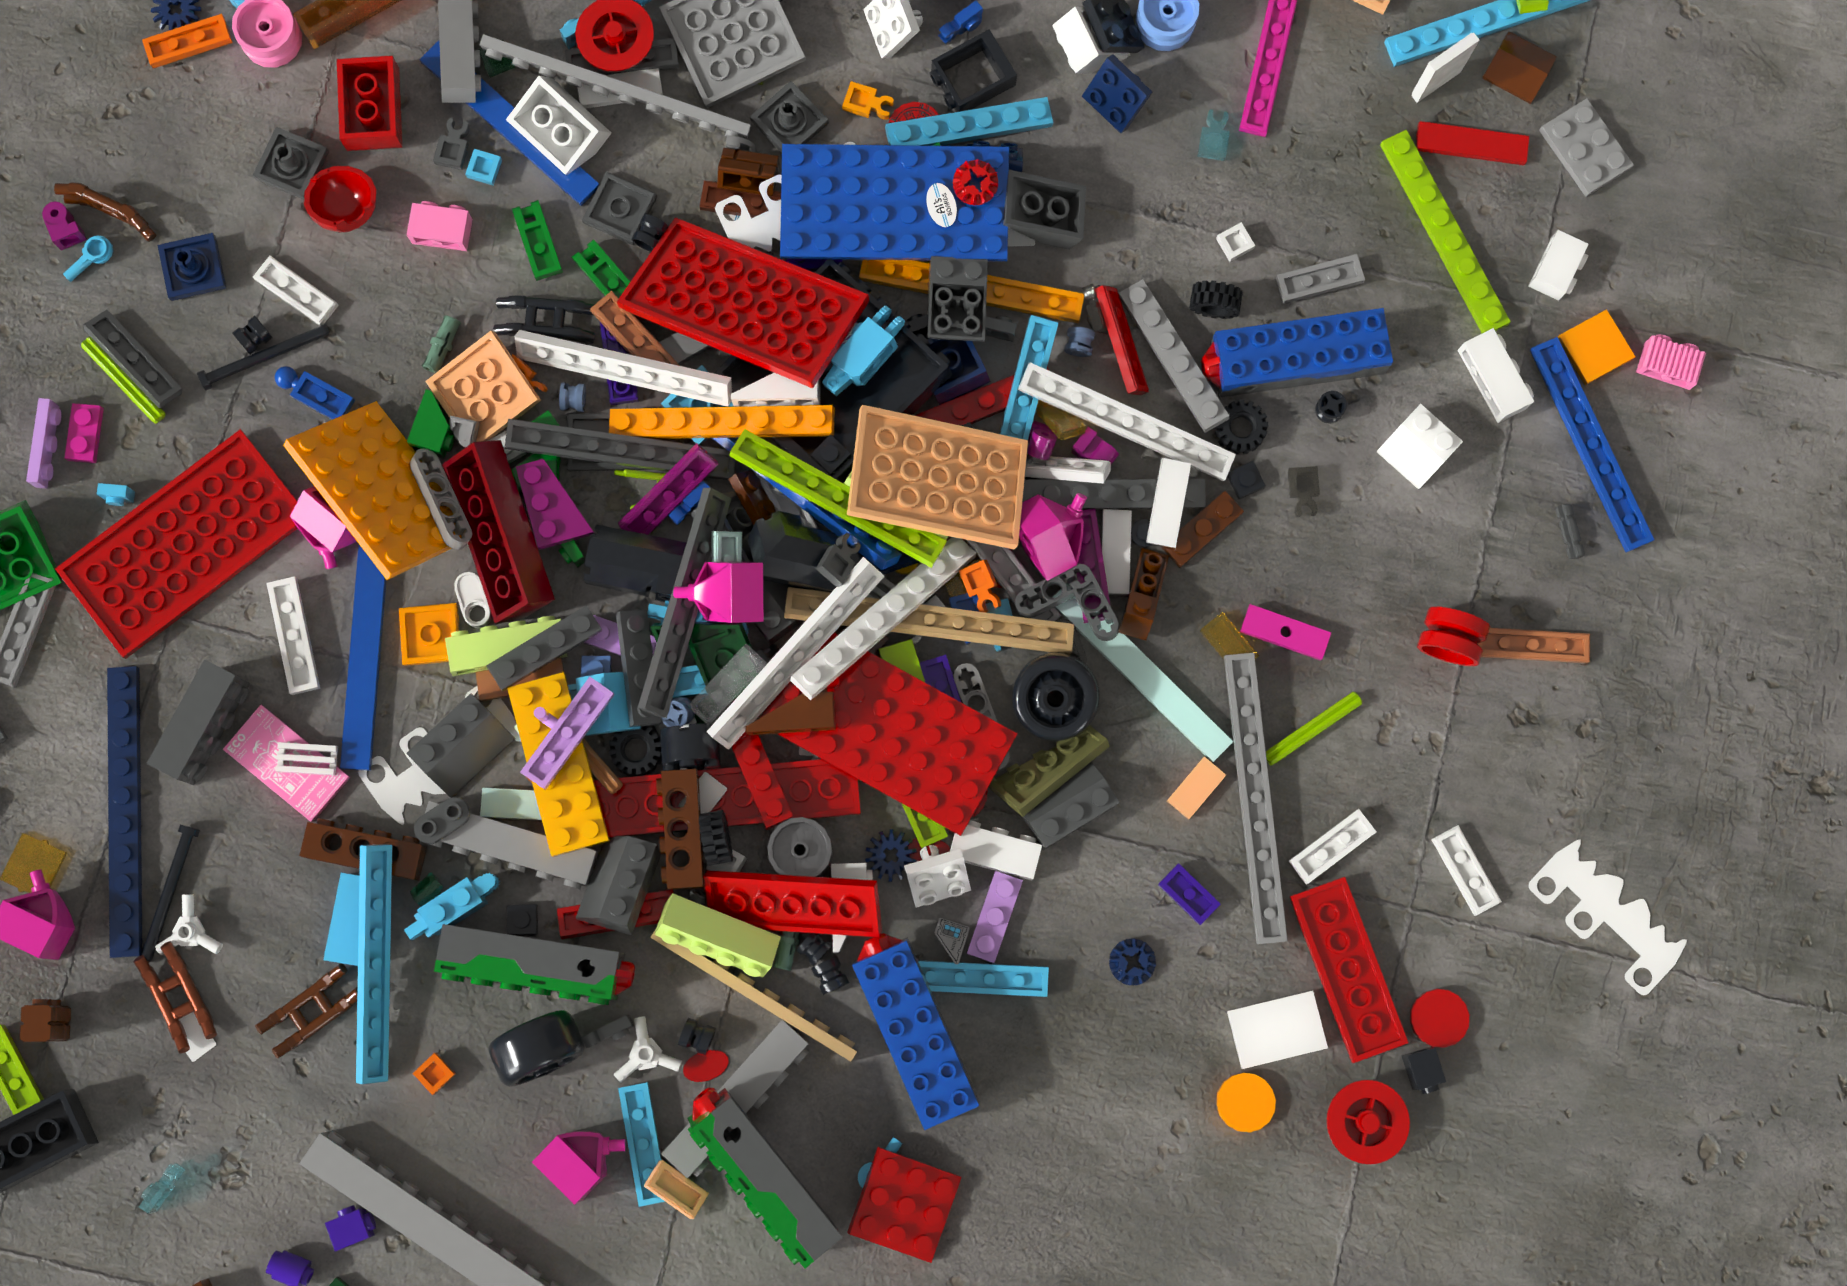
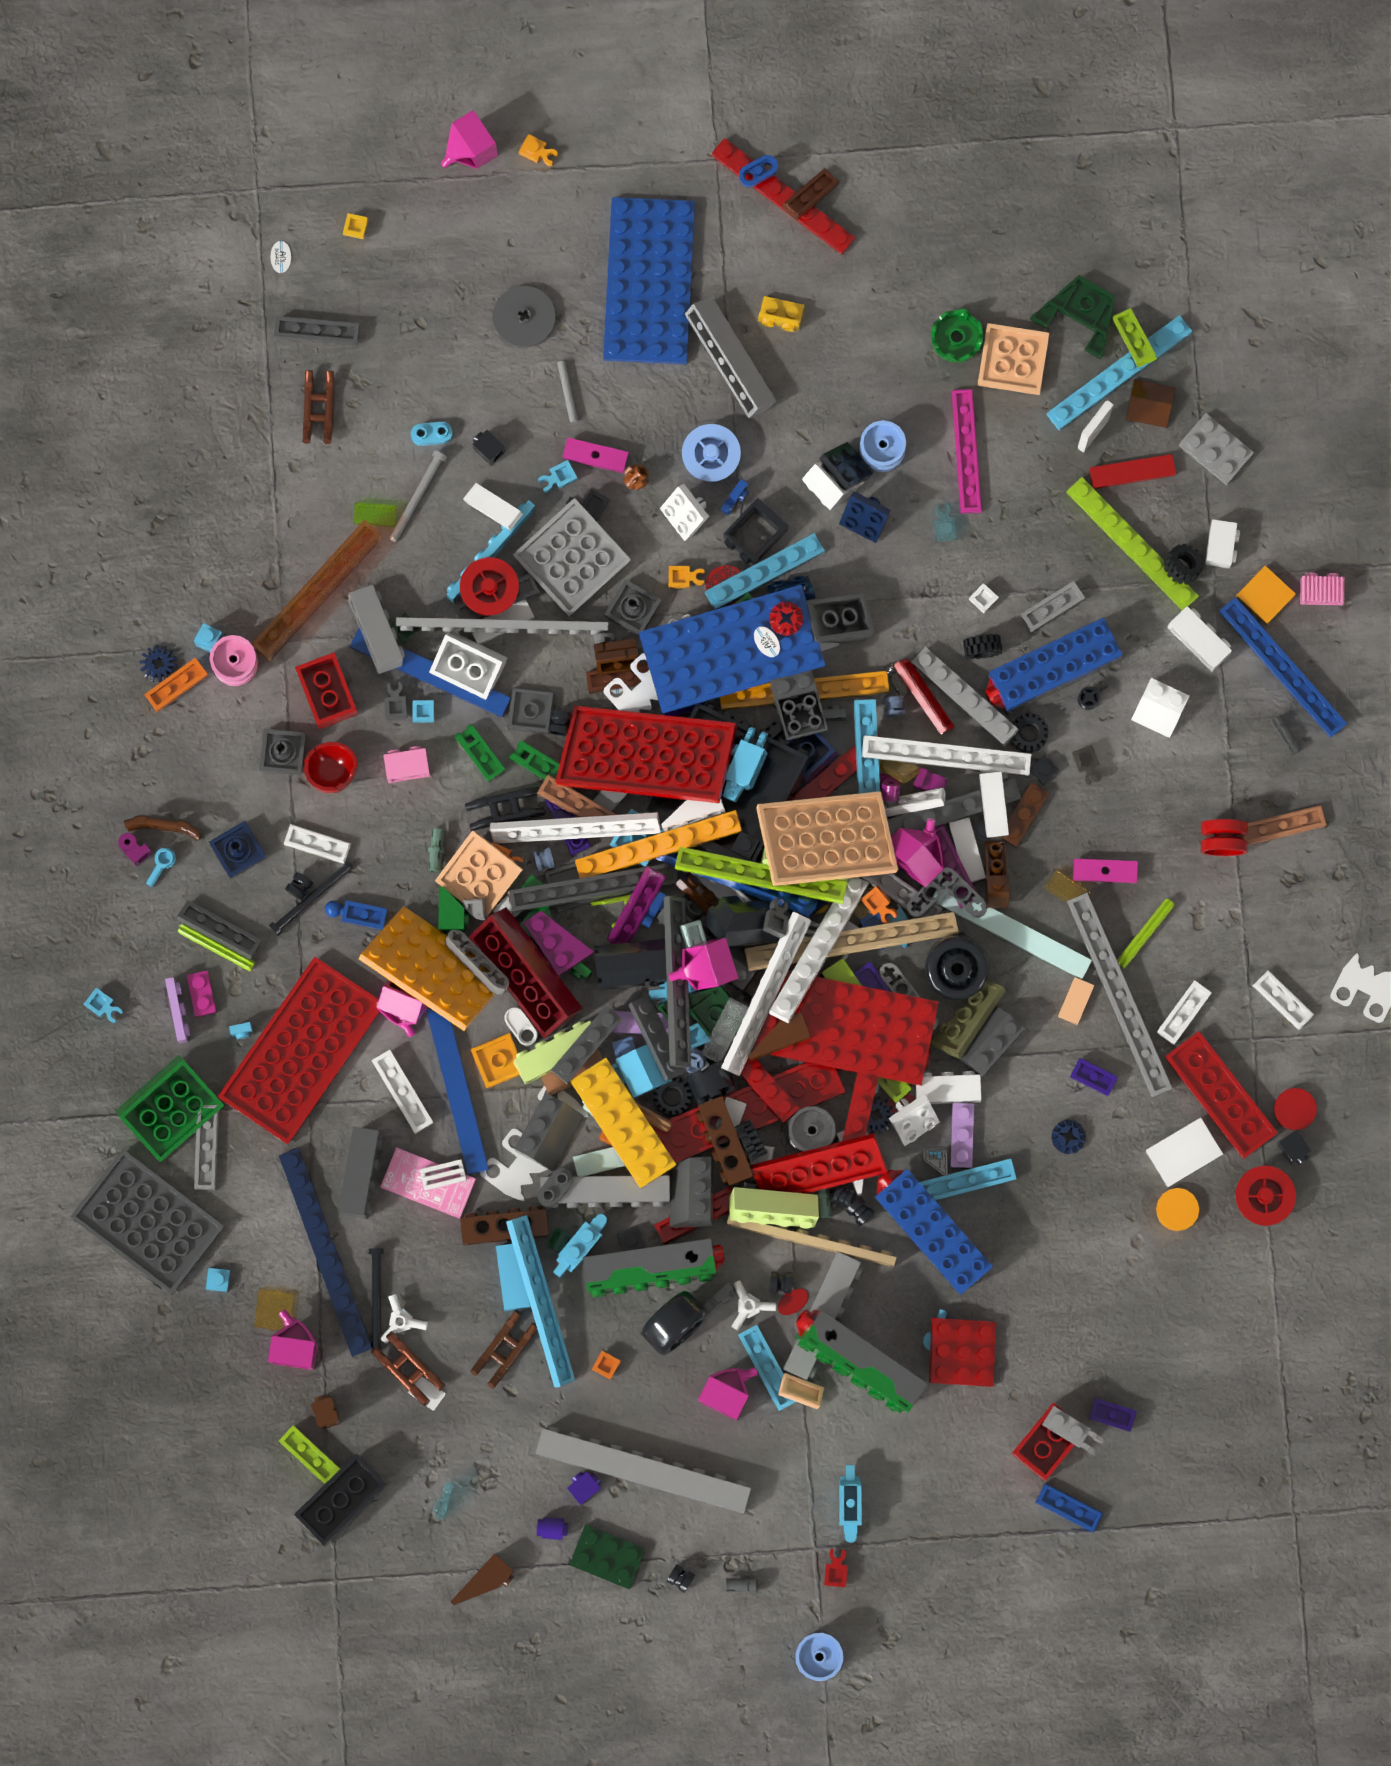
camera: 10 degrees left, 0 degrees up
(565, 732) = (623, 1098): lavender plate -> none
(872, 839) = (860, 1106): none -> red plate
(1495, 283) = (1179, 573): none -> black tyre

